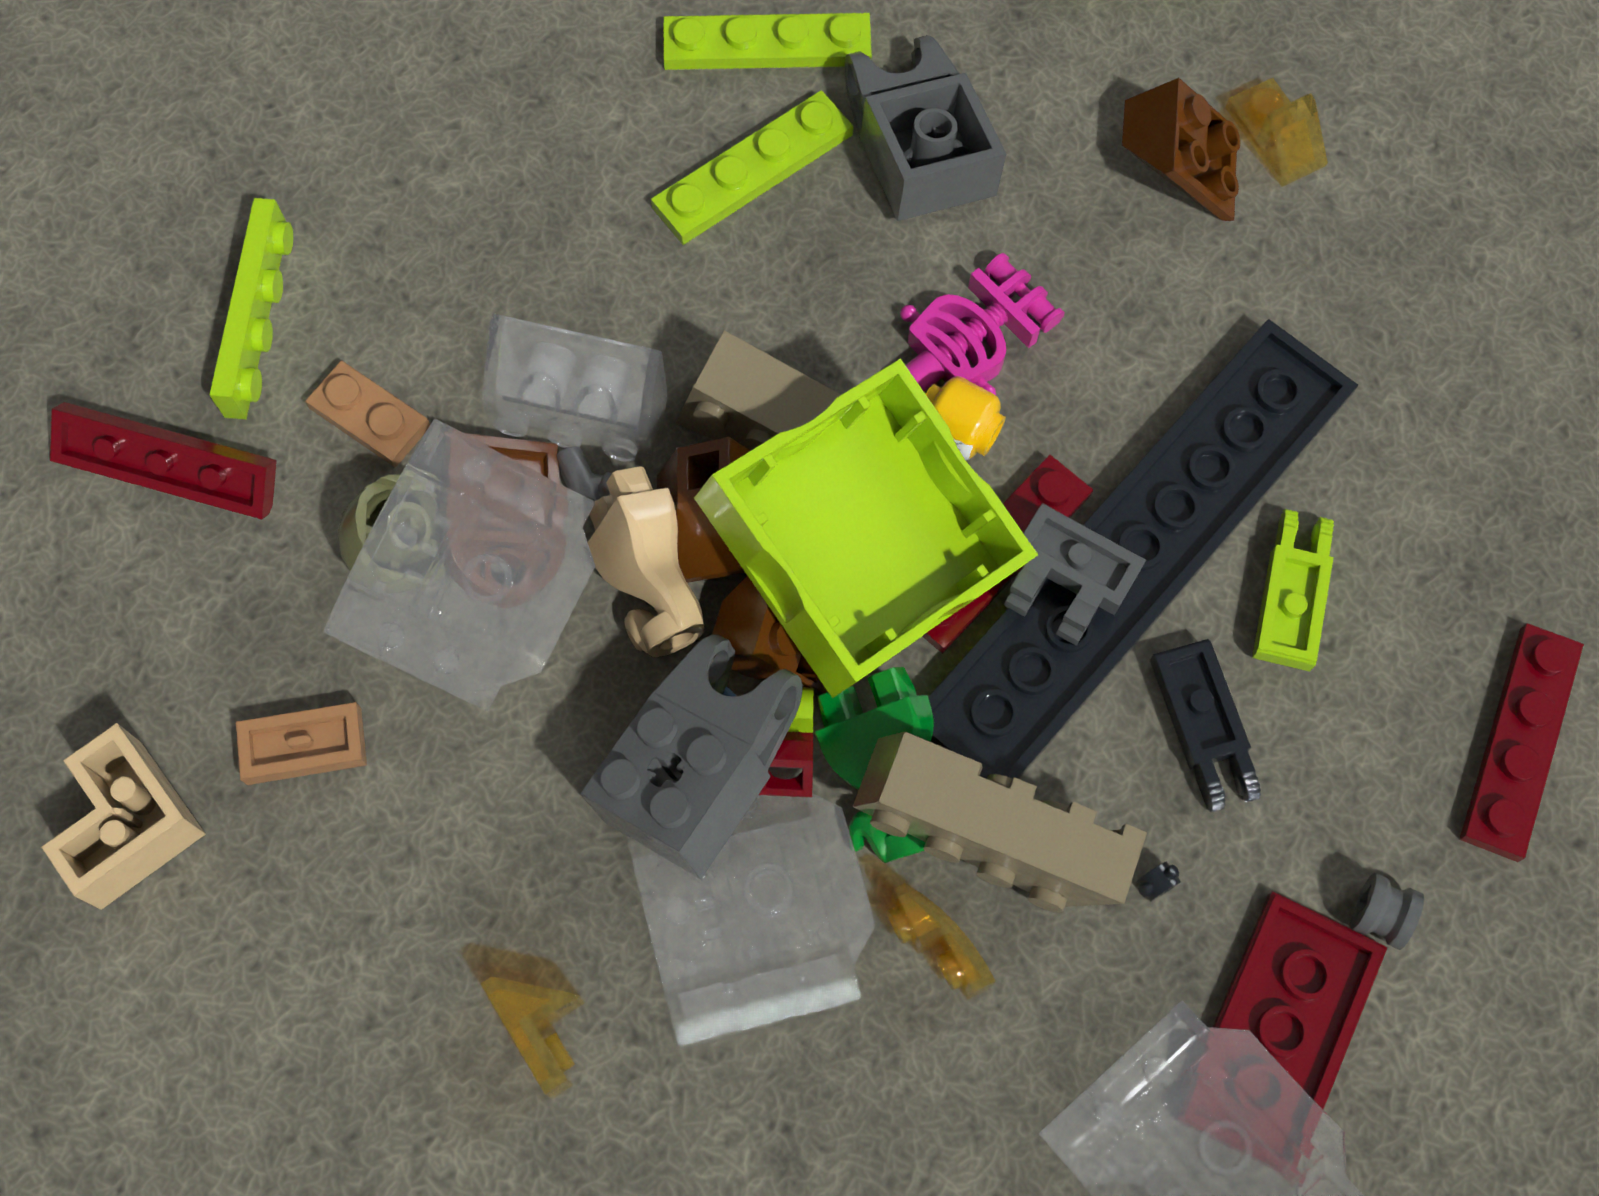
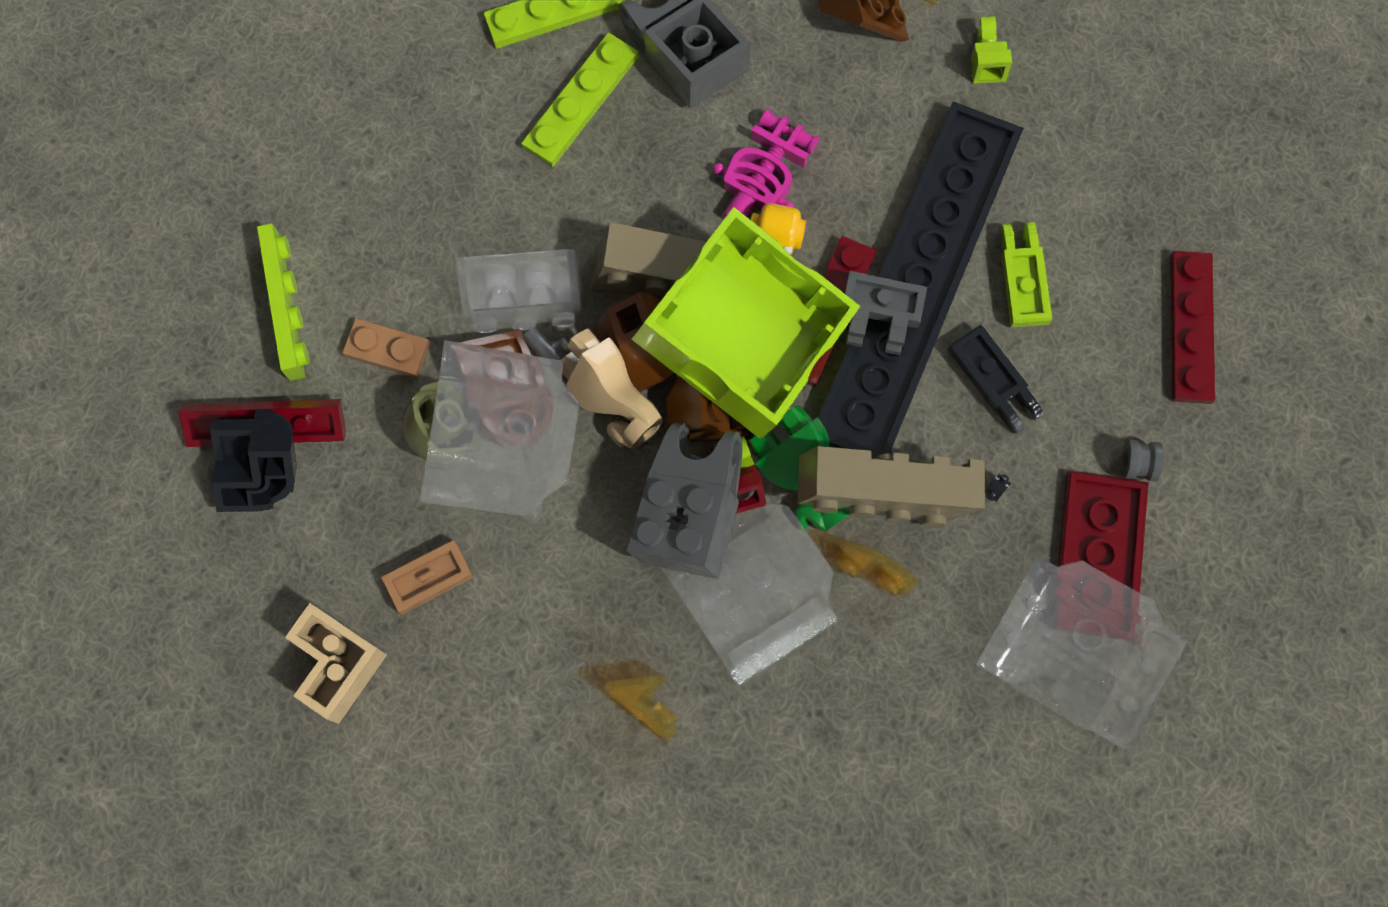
camera: 15 degrees left, 5 degrees up
(122, 506) = (252, 462): none -> black brick
(1340, 276) = (990, 58): none -> lime piece

